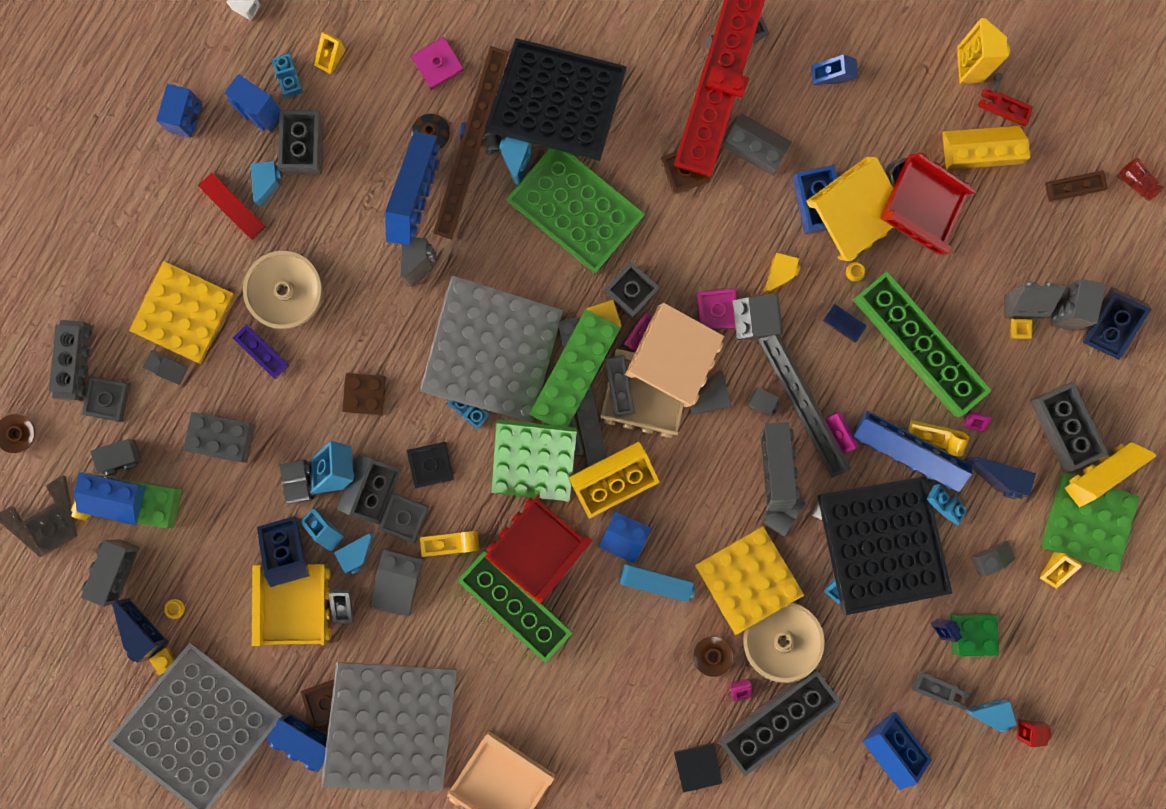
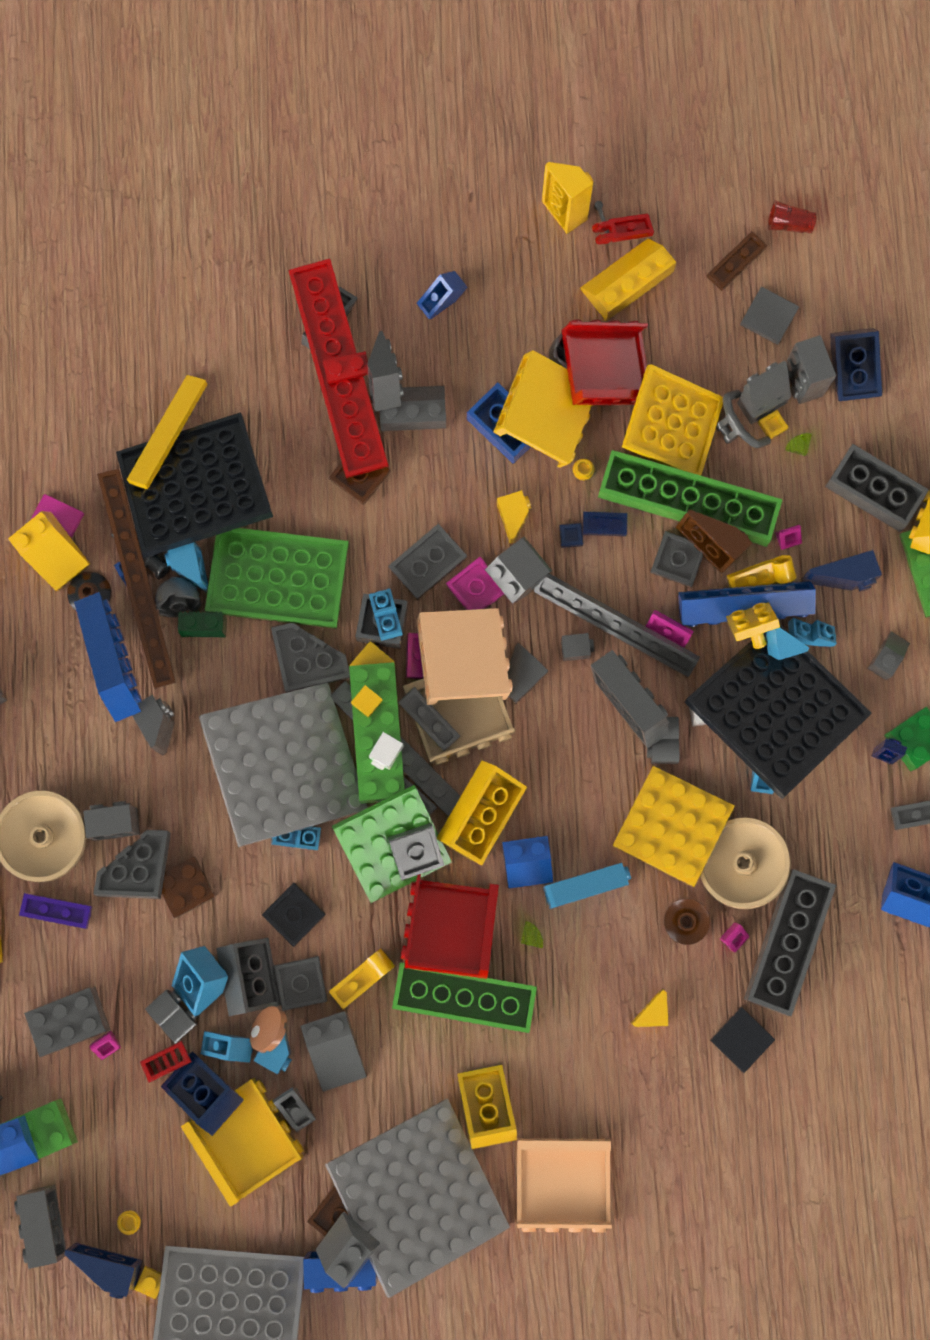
camera: 30 degrees left, 5 degrees down
(236, 471) = (105, 1045): none -> dark pink slope
(256, 507) = (146, 1066): none -> red slope
(311, 733) = (345, 1250): none -> dark grey slope
(337, 358) = (137, 869): none -> dark grey plate
(340, 313) = (111, 822): none -> dark grey brick
(358, 537) = (268, 1029): none -> nougat tile
(420, 81) = (49, 550): none -> yellow slope
(481, 694) = (487, 1107): none -> yellow slope
(492, 175) = (176, 596): none -> dark grey cylinder
(497, 208) = (202, 624): none -> dark green brick
(547, 477) = (416, 851): none -> tile
(558, 283) = (306, 659): none -> dark grey plate
(562, 46) = (167, 432): none -> yellow tile
(571, 390) = (385, 752): none -> white brick
(581, 344) = (366, 701): none -> yellow tile
(593, 592) = (531, 935): none -> clear neon green tile
(637, 287) = (385, 614): none -> dark azure slope
(646, 706) = (654, 1013): none -> yellow slope
(694, 267) = (427, 561): none -> dark grey plate
(751, 106) = (384, 375): none -> dark grey slope
(813, 315) = (571, 535): none -> dark blue tile
(882, 384) = (677, 559): none -> dark grey tile
(908, 470) = (753, 623): none -> yellow plate
(919, 387) = (715, 539): none -> reddish brown slope
(919, 499) = (783, 645): none -> dark azure slope
(947, 278) = (673, 421): none -> yellow plate
(992, 315) = (738, 429): none -> dark grey piece
(1031, 356) = (799, 444): none -> clear neon green tile
(1073, 244) = (769, 315): none -> dark grey tile

